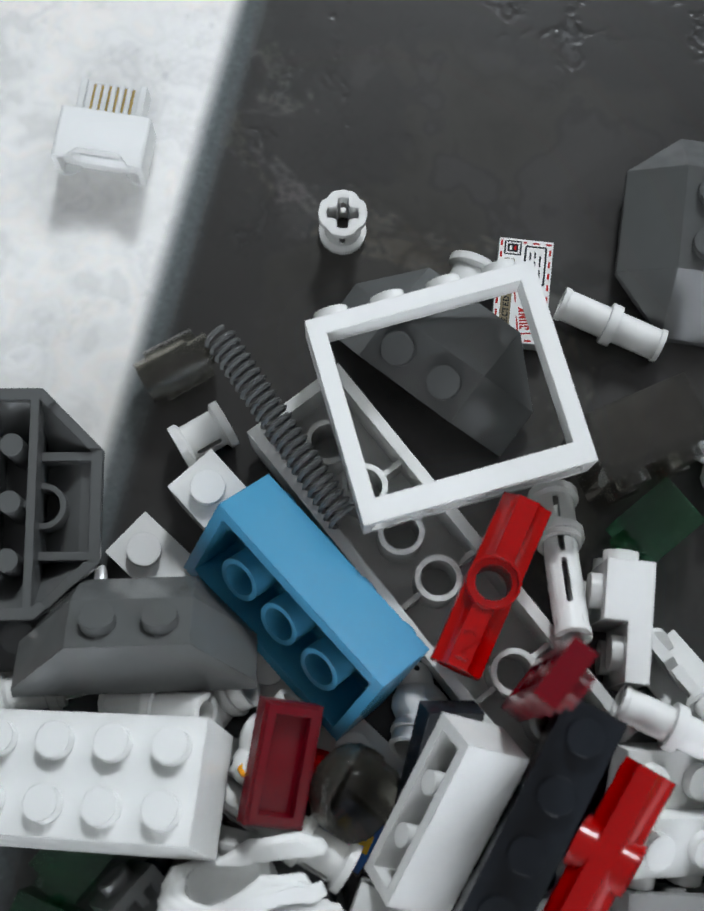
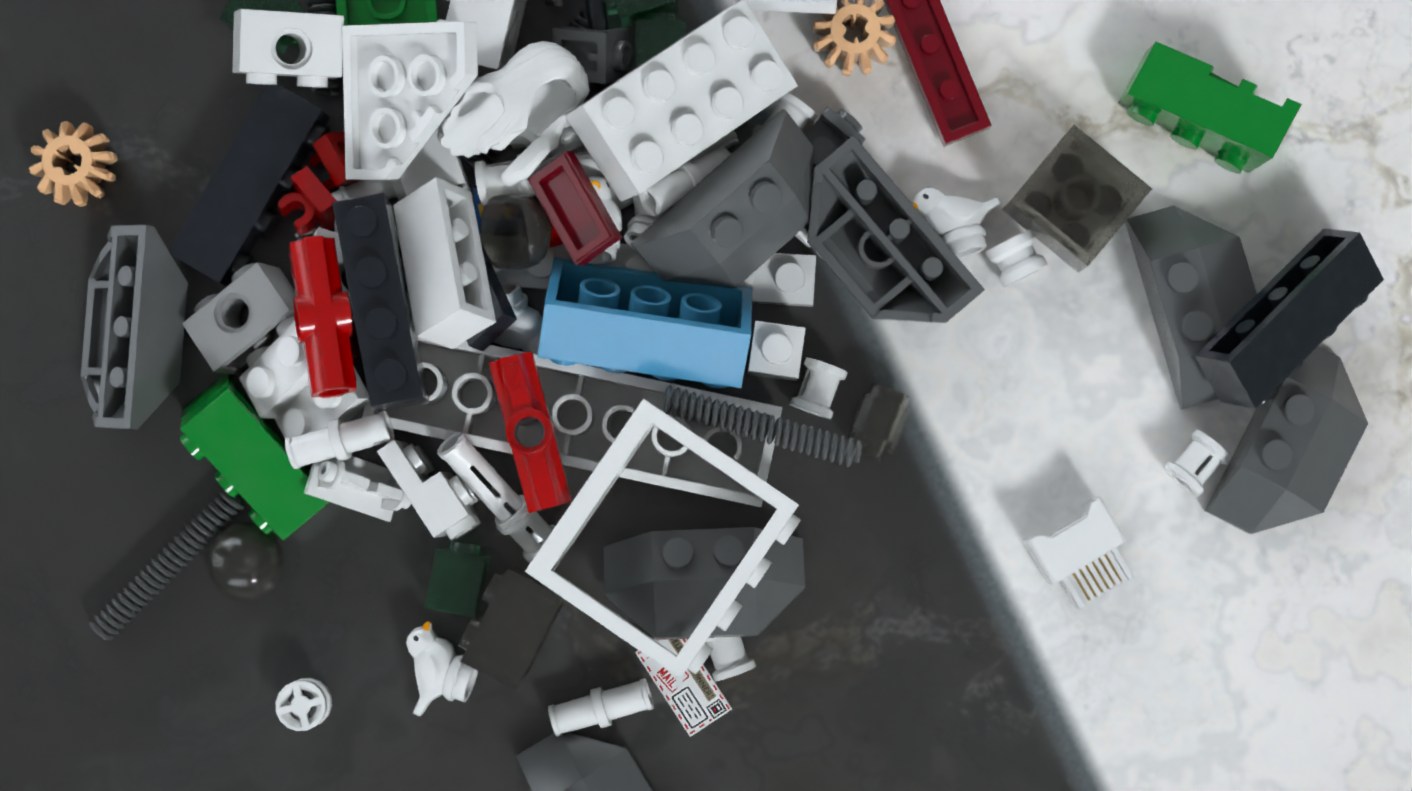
camera: 140 degrees right, 10 degrees up
(355, 212) = (868, 625): white bush -> none
(553, 682) = (437, 380): dark red plate -> none

